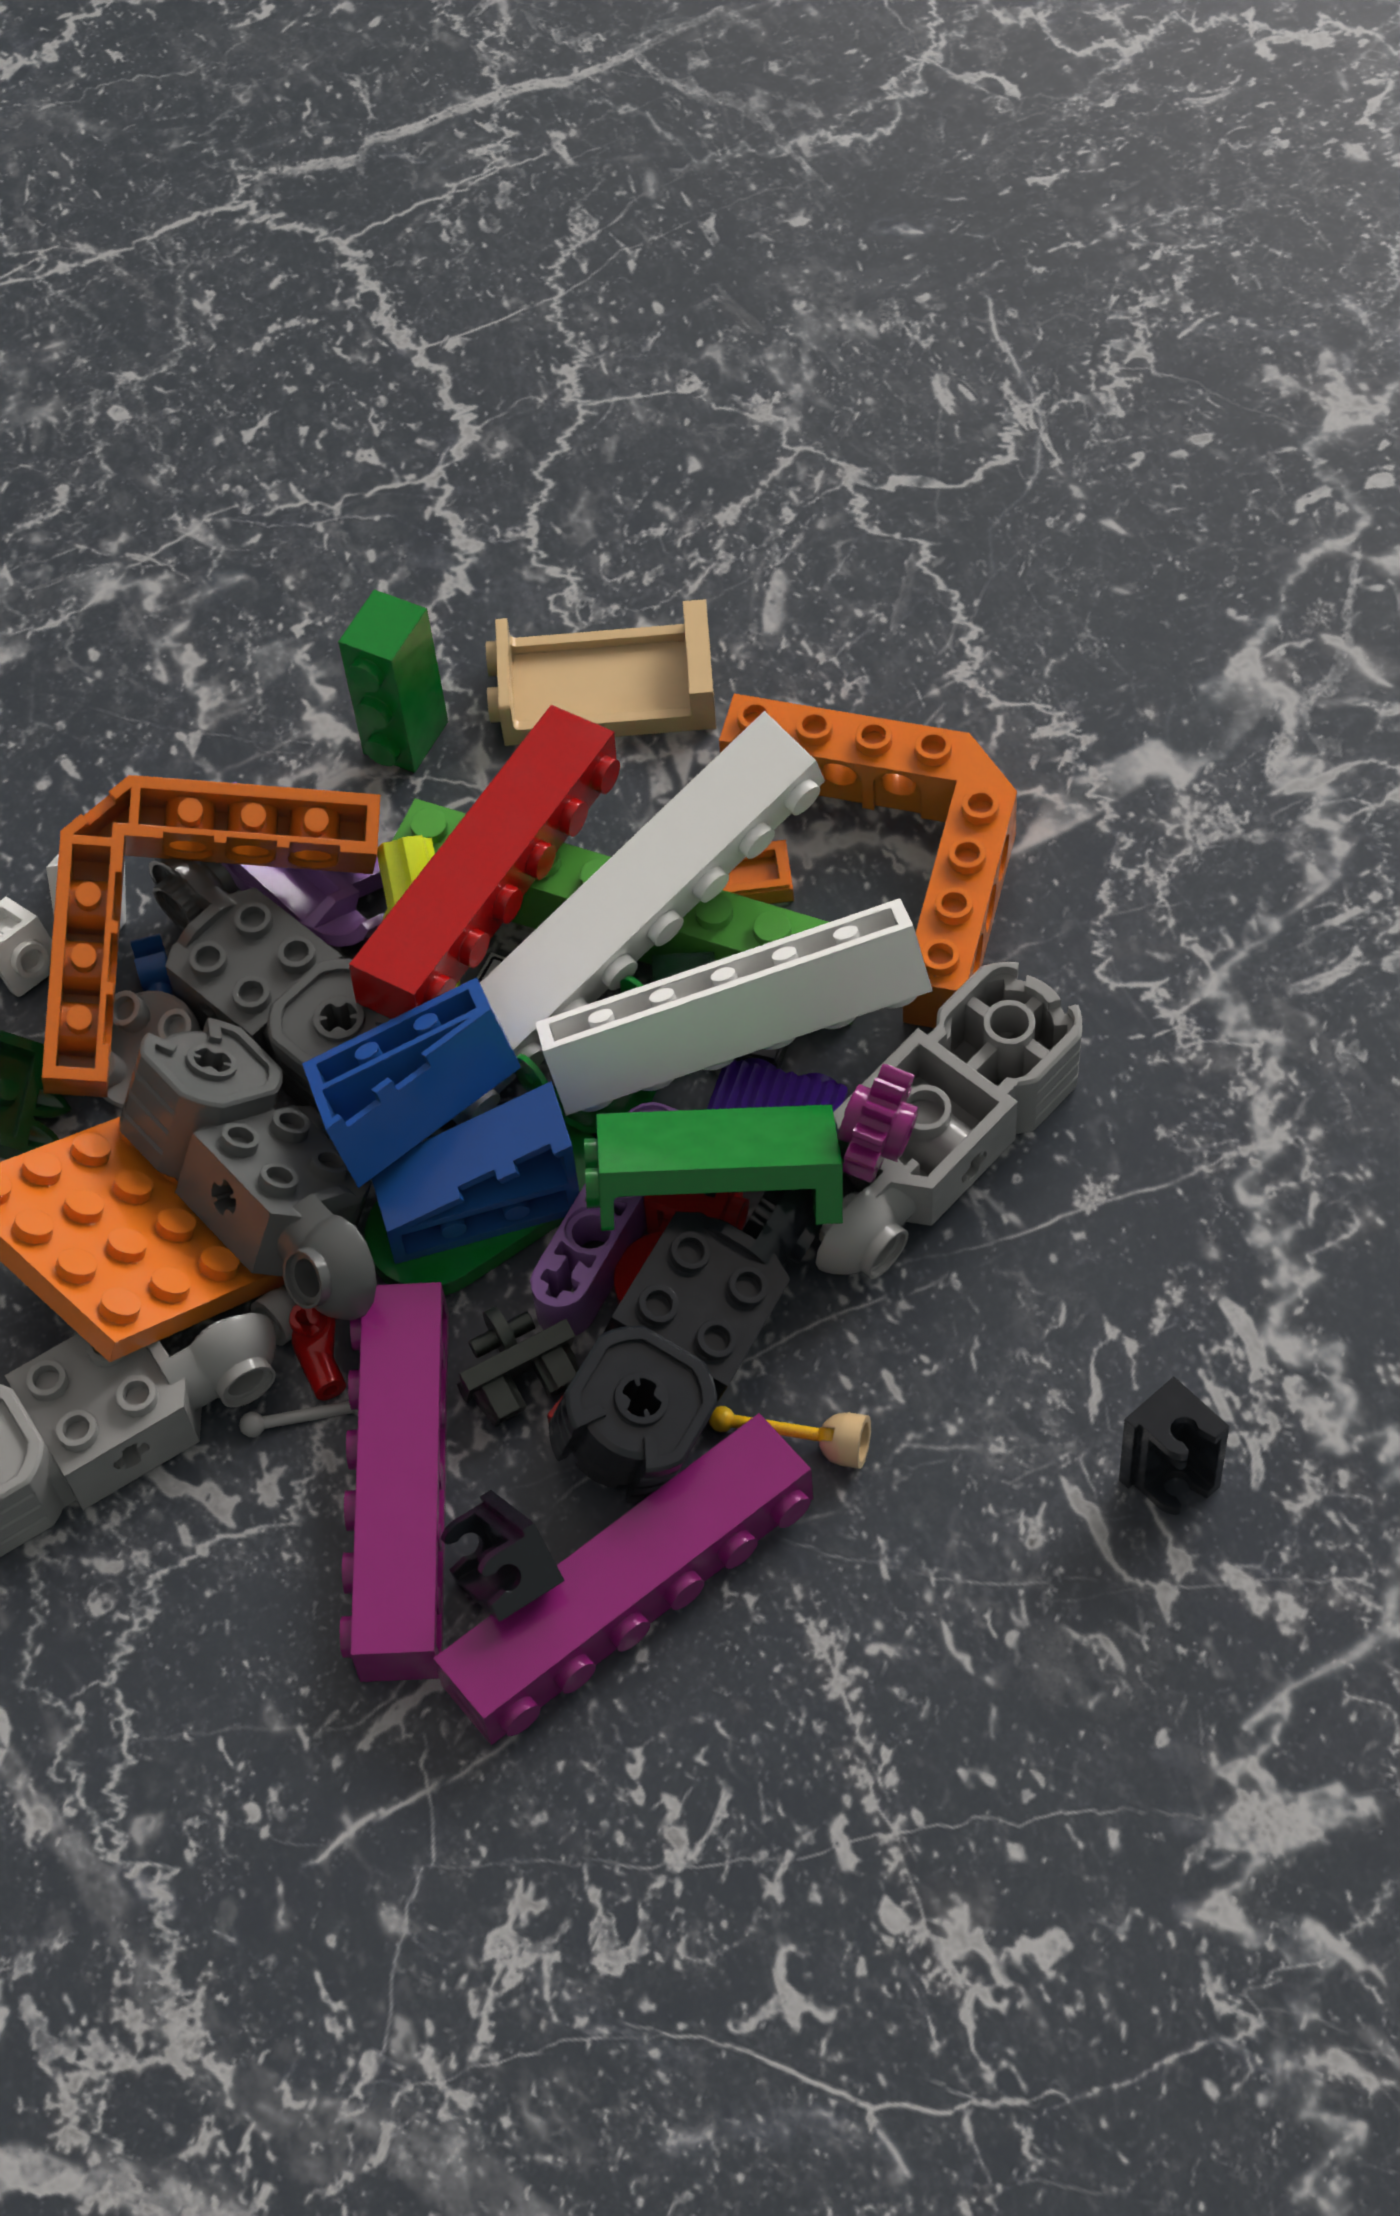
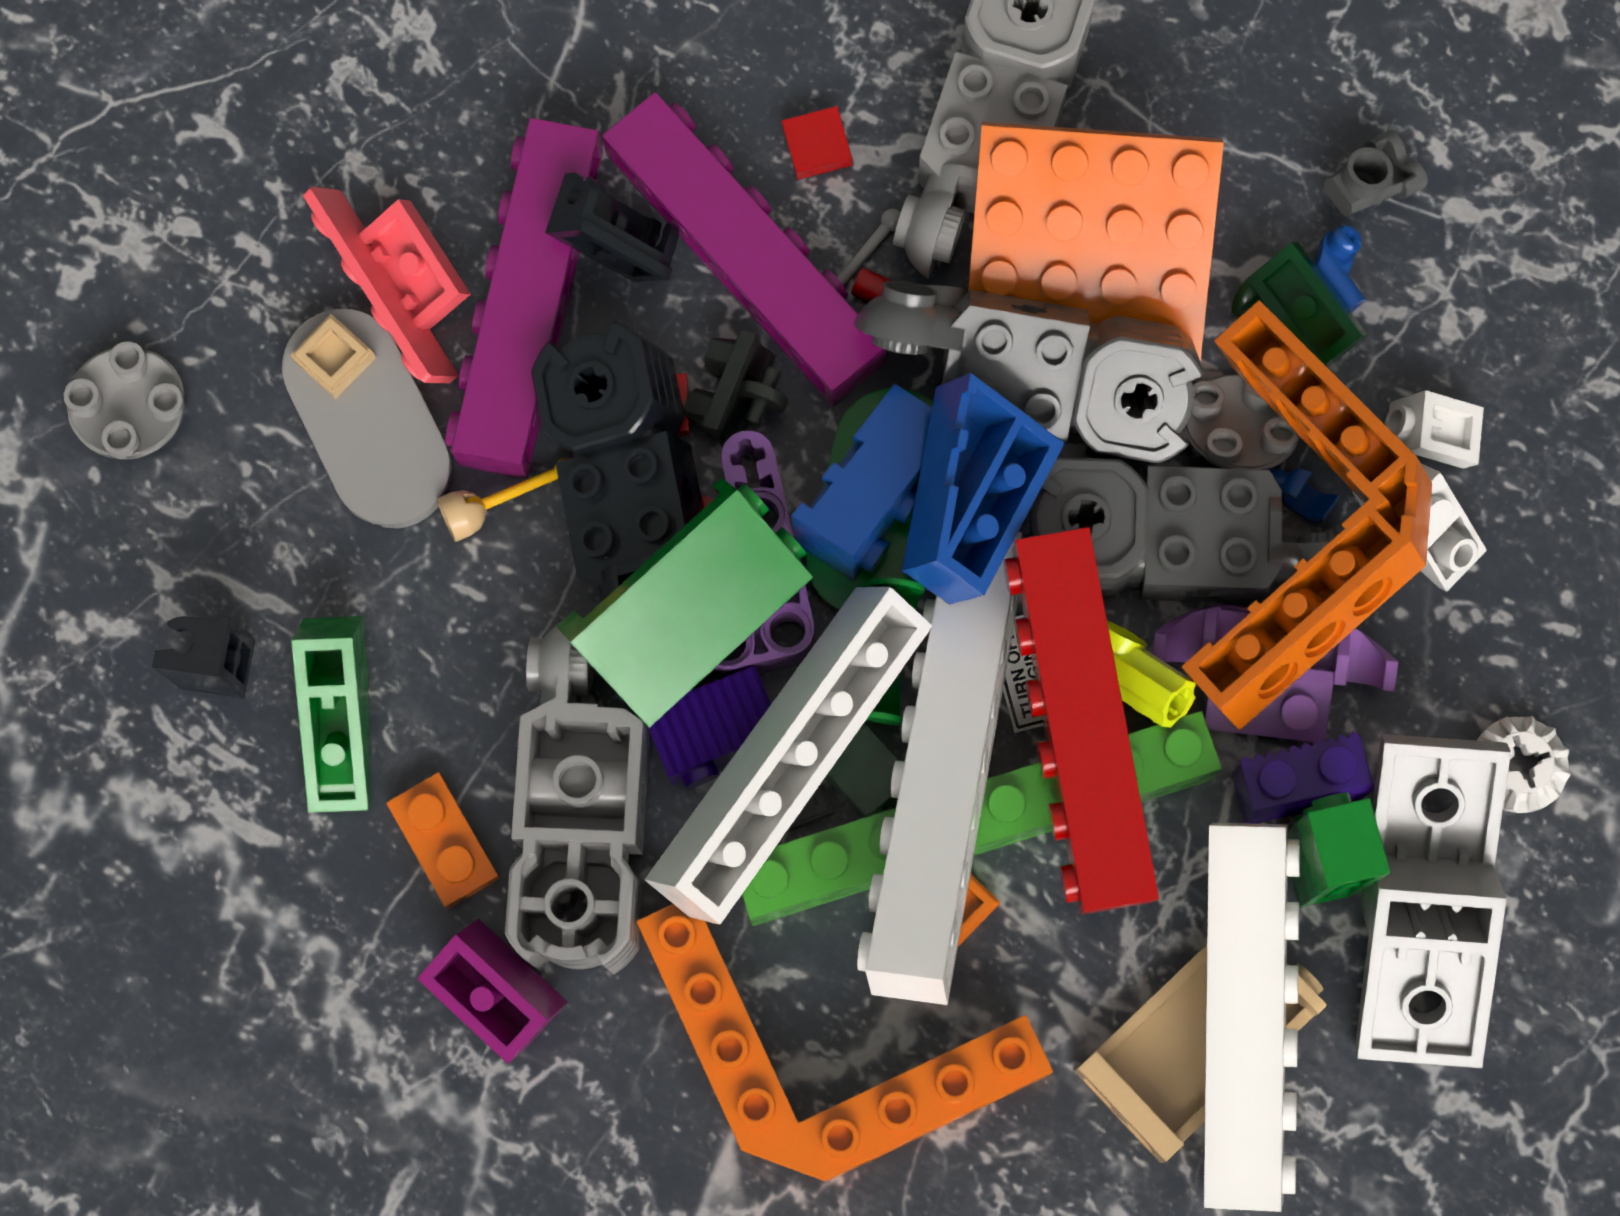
camera: 140 degrees right, 20 degrees up
(204, 713) = (1549, 774): none -> white gear
(251, 1535) = (817, 143): none -> red tile
(298, 668) = (1439, 908): none -> bracket
(351, 761) = (1294, 778): none -> dark purple brick
(554, 638) = (1248, 1016): none -> white brick
(723, 1691) = (400, 274): none -> coral bracket
(849, 1652) = (333, 356): none -> tan tile
(862, 1592) = (377, 434): none -> light grey tile
(878, 1123) = (576, 704): magenta gear -> none
(1077, 1197) = (443, 840): none -> orange plate
(1081, 1769) = (125, 402): none -> light grey dish
(1087, 1352) = (333, 712): none -> green slope
(1126, 1036) = (492, 990): none -> magenta brick

